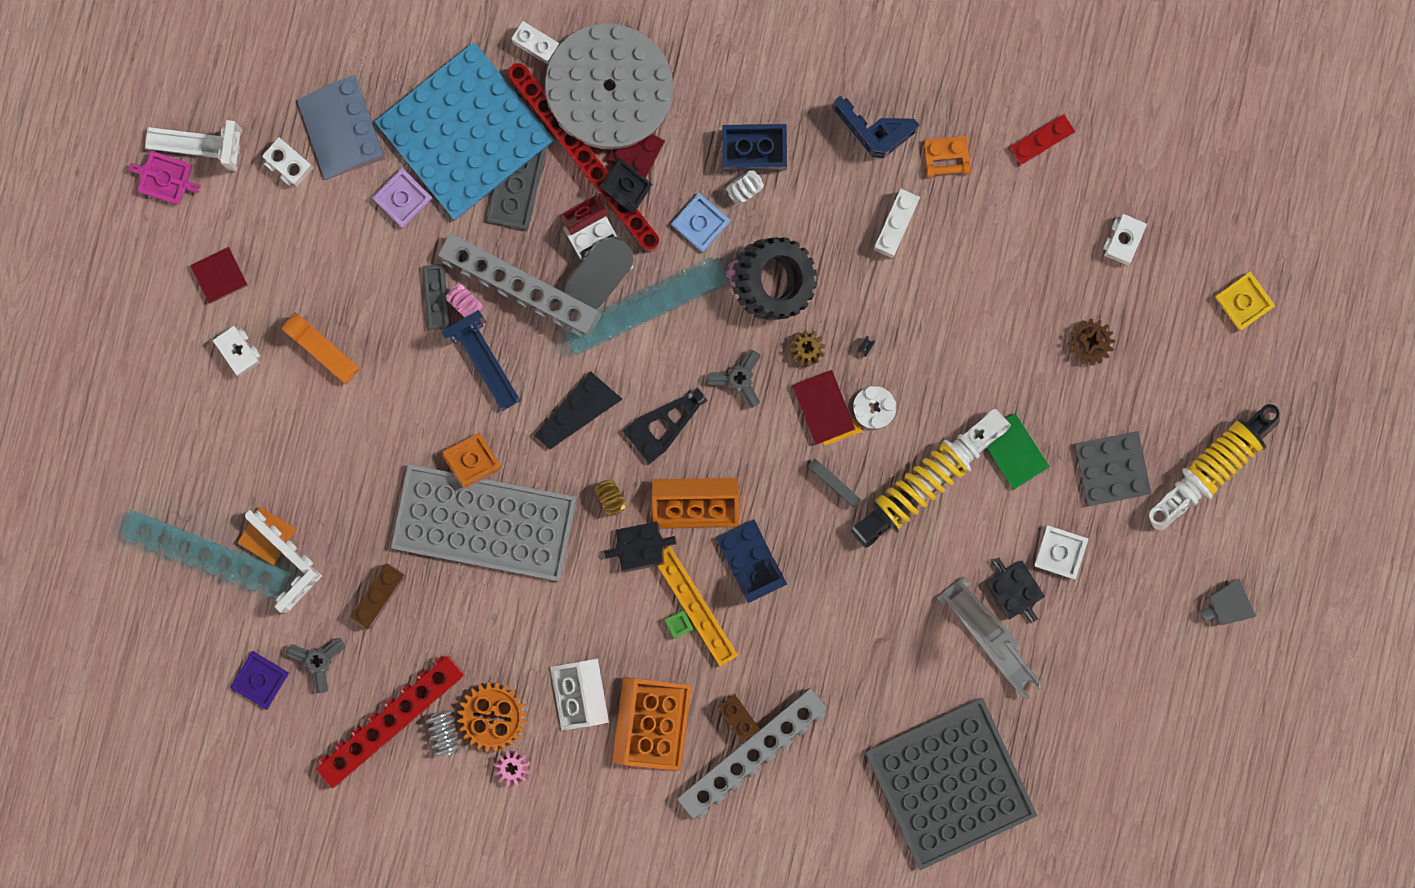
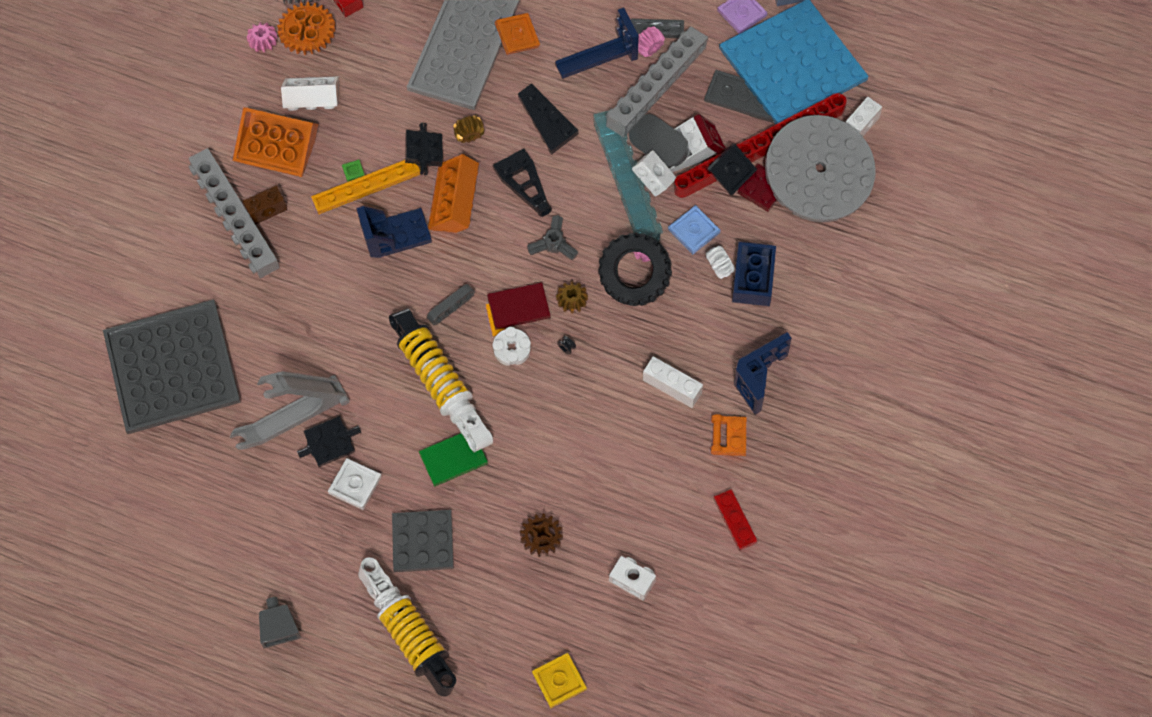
camera: 100 degrees right, 20 degrees down
(643, 274) = (654, 173): none -> white brick

